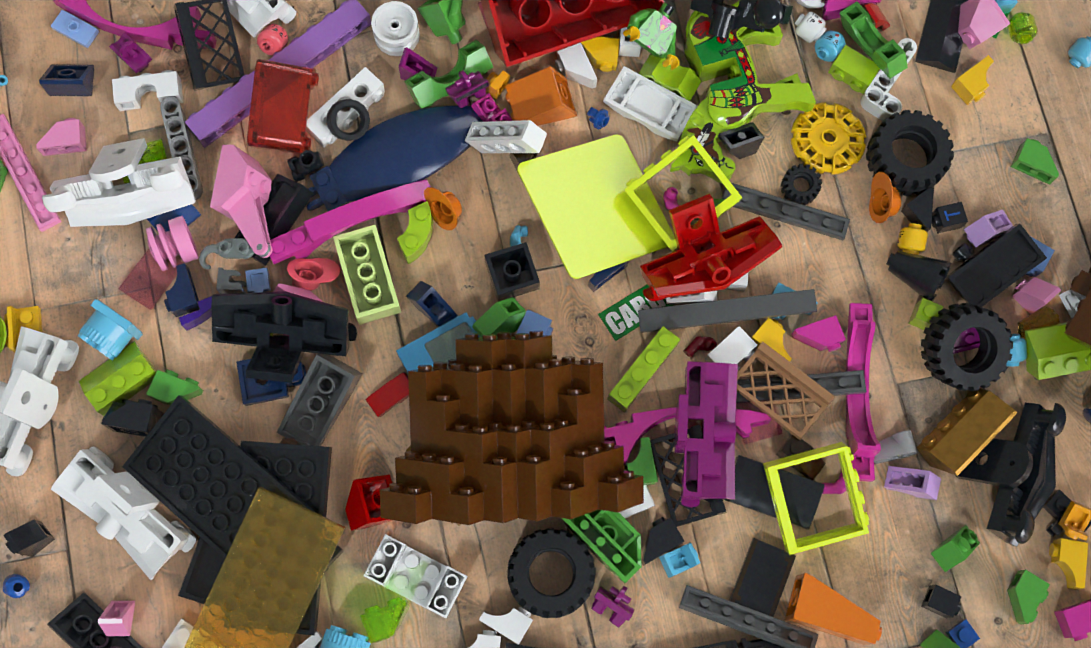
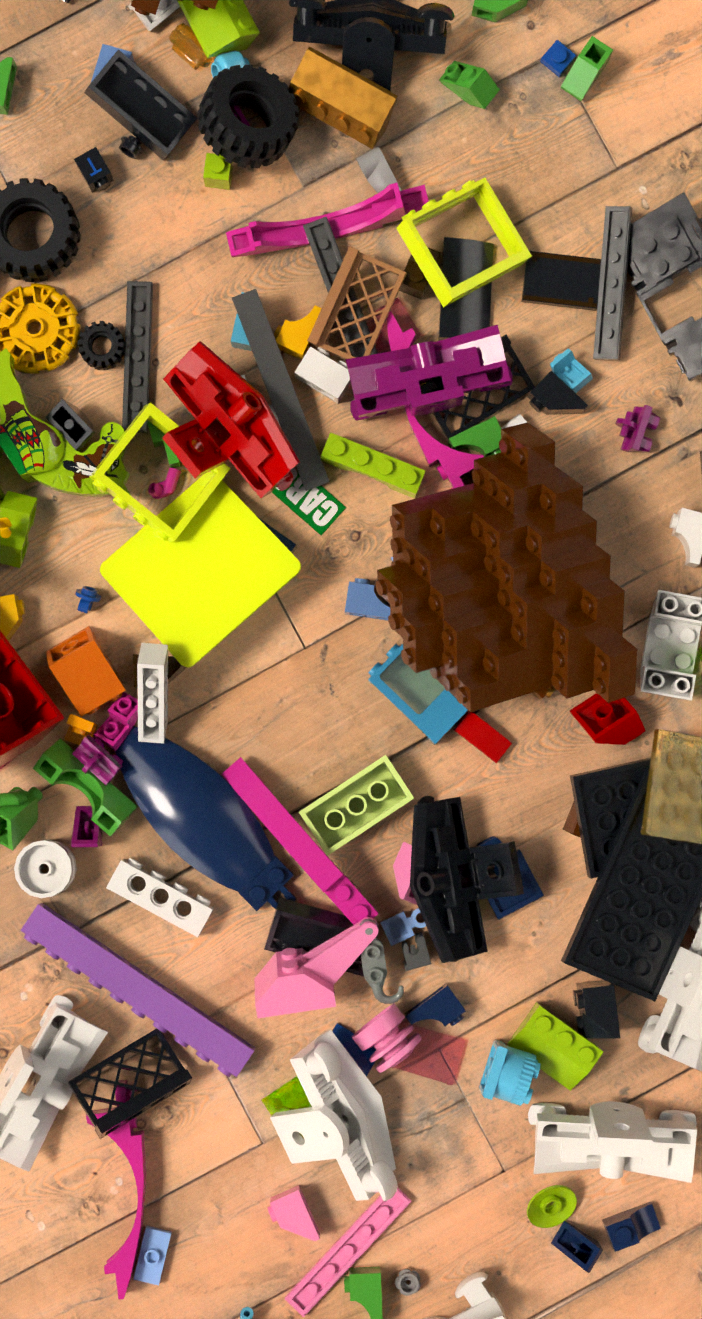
camera: 105 degrees left, 10 degrees up
(15, 318) = (521, 1179): yellow bracket -> none
(68, 80) = (218, 1237): dark blue slope -> none
(129, 90) = (213, 1159): white arch -> none
(131, 53) = (167, 1174): magenta hips -> none
(167, 387) = (550, 981): bright green slope -> none
(179, 139) = (253, 1075): light grey beam -> none
(198, 317) = (447, 975): dark purple slope -> none
(272, 39) = (101, 1010): coral head -> none
(280, 107) = (186, 967): clear red windscreen -> none
(305, 164) = (246, 925): black plate -> none
(312, 272) = (370, 867): coral piece -> none
(319, 400) = (515, 812): dark grey slope -> none
(364, 117) = (187, 867): black tyre -> none
(418, 233) = (288, 762): lime brick -> none
(431, 304) = (368, 722): dark blue arch -> none
(444, 207) = (252, 741): orange piece -> none
(501, 317) = (366, 638): bright green slope -> none
(512, 271) = (305, 642): black slope -> none
(518, 232) = (262, 651): medium azure arm -> none
(576, 65) = (31, 640): white slope -> none
(582, 565) = (652, 480): black tyre -> none
(610, 540) = (580, 440): bright green wedge -> none
(649, 104) = (53, 543): white slope -> none
(700, 343) = (322, 411): dark red arm -> none
(821, 334) = (274, 280): dark pink slope -> none
(827, 611) = (581, 205): orange slope -> none
(835, 488) = (441, 226): dark pink arm -> none
(884, 199) = (95, 247): orange piece -> none
(912, 239) = (133, 205): yellow head -> none
(913, 482) = (412, 144): lavender arch -> none
(919, 272) = (171, 188): black cone -> none
(920, 209) = (95, 203): black slope -> none
(942, 601) = (531, 86): black brick -> none
(988, 228) = (94, 122): lavender arch -> none
(1034, 294) = (160, 55): bright pink slope -> none

